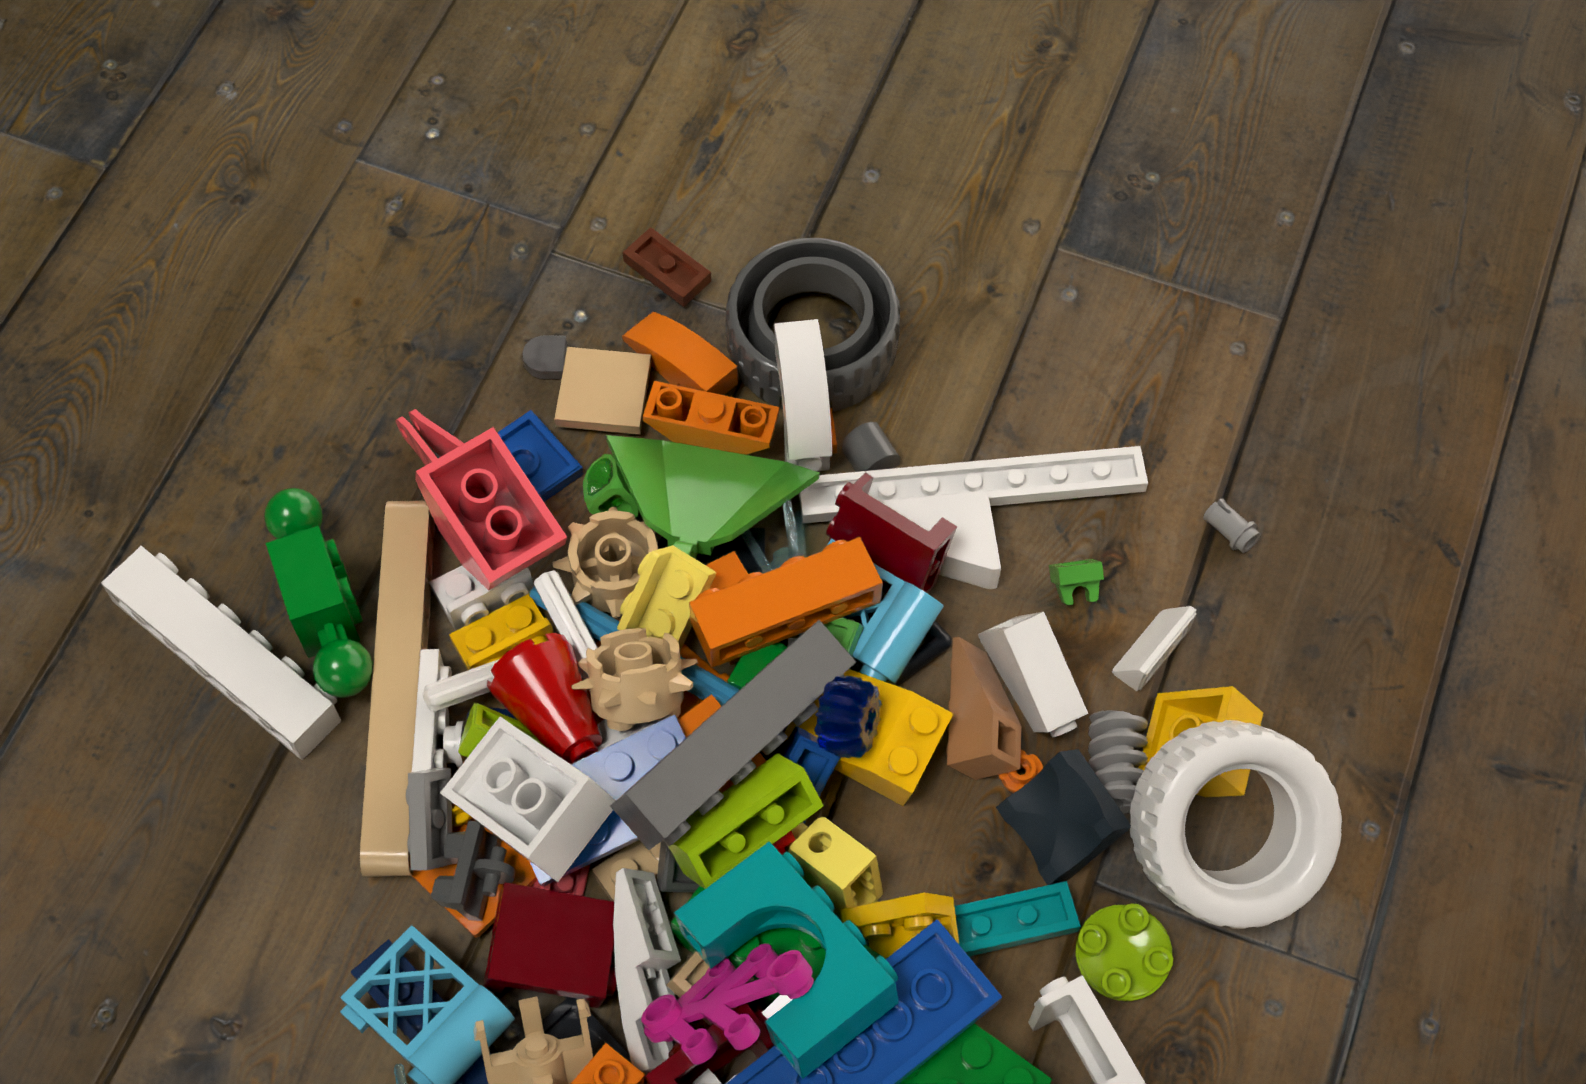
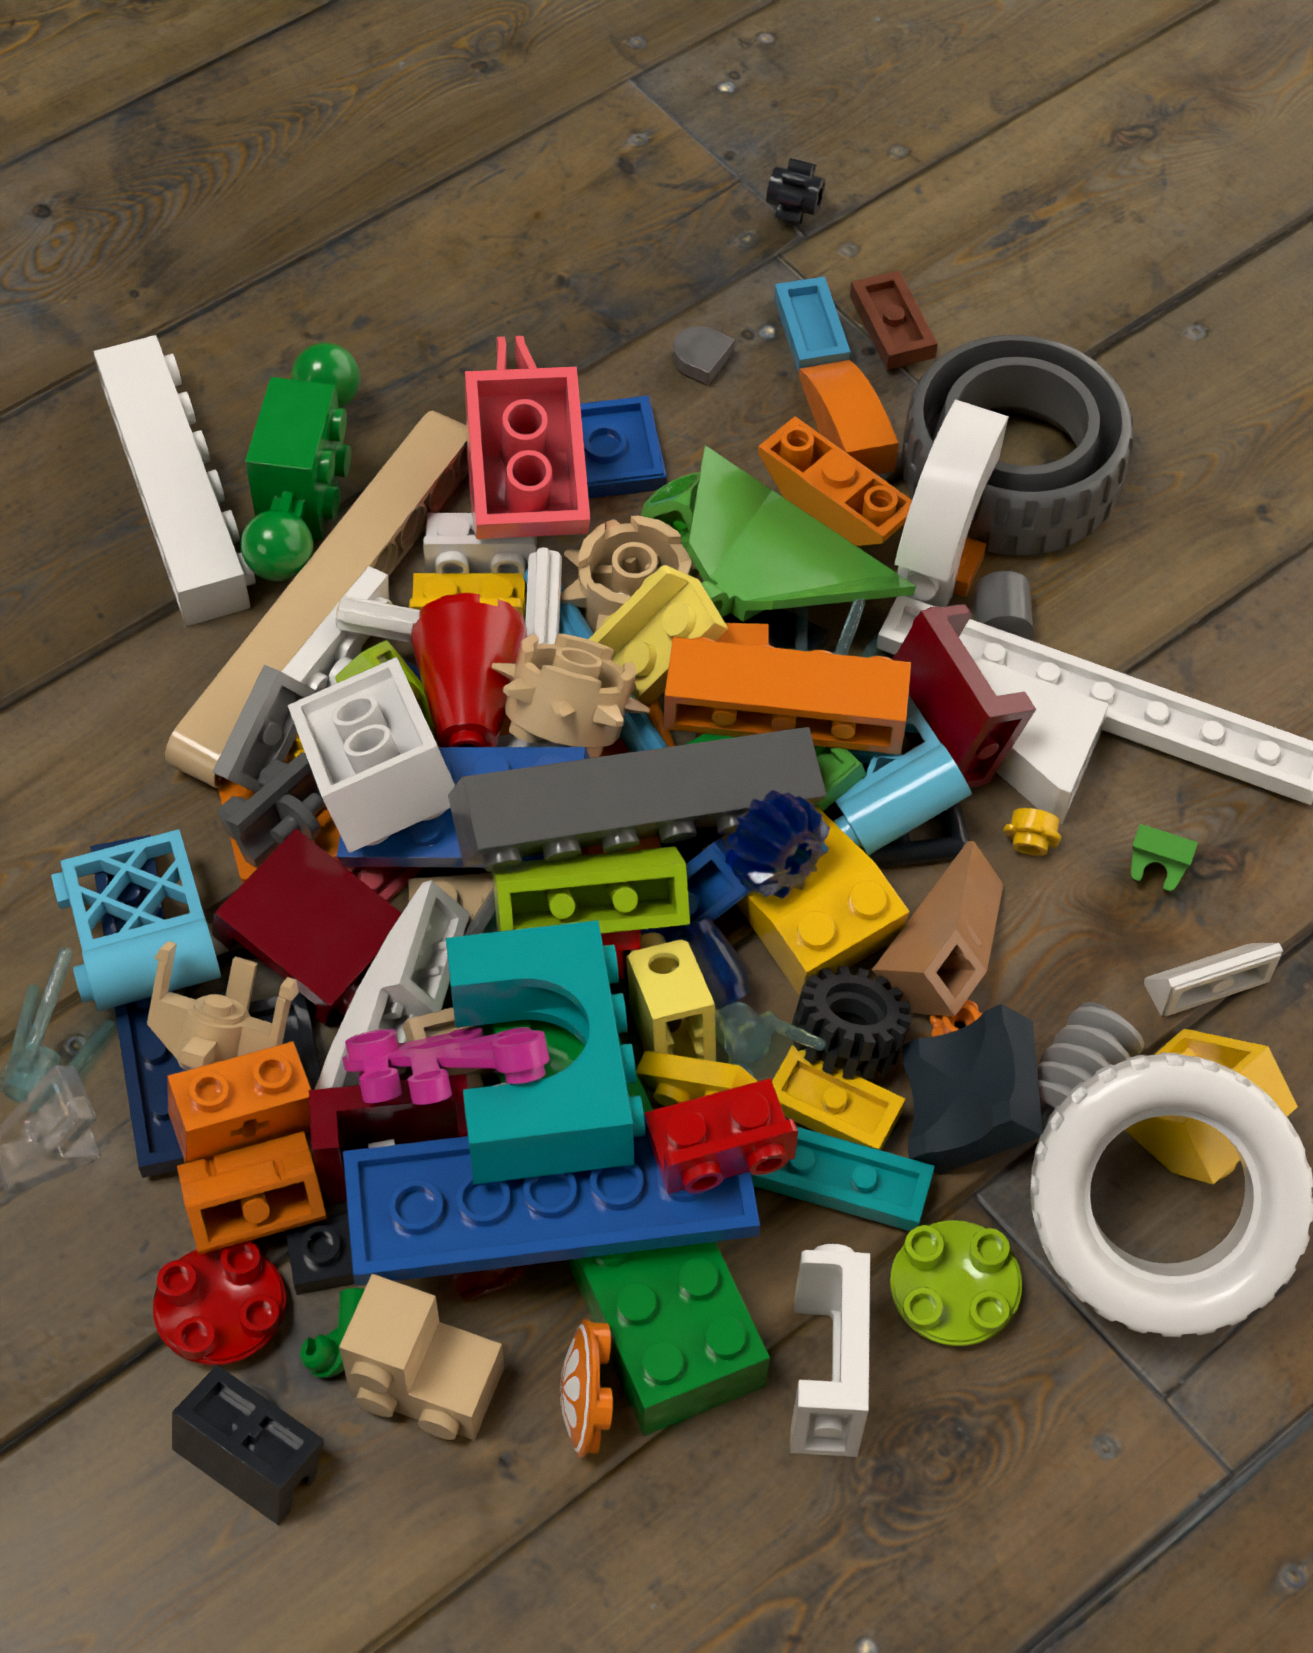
camera: 30 degrees right, 5 degrees down
(540, 198) = (795, 190): none -> black gear
(603, 390) = (737, 409): tan tile -> none
(609, 296) = (811, 322): none -> dark azure tile
(847, 816) = (718, 961): none -> clear blue cone
(897, 860) = (748, 1035): none -> clear light blue plant
(942, 951) = (721, 1137): none -> red bracket
(949, 829) = (852, 1047): none -> black tyre
(975, 870) = (836, 1105): none -> yellow plate
(986, 606) = (1033, 831): none -> yellow plate
(1035, 672) = (1042, 925): white slope -> none

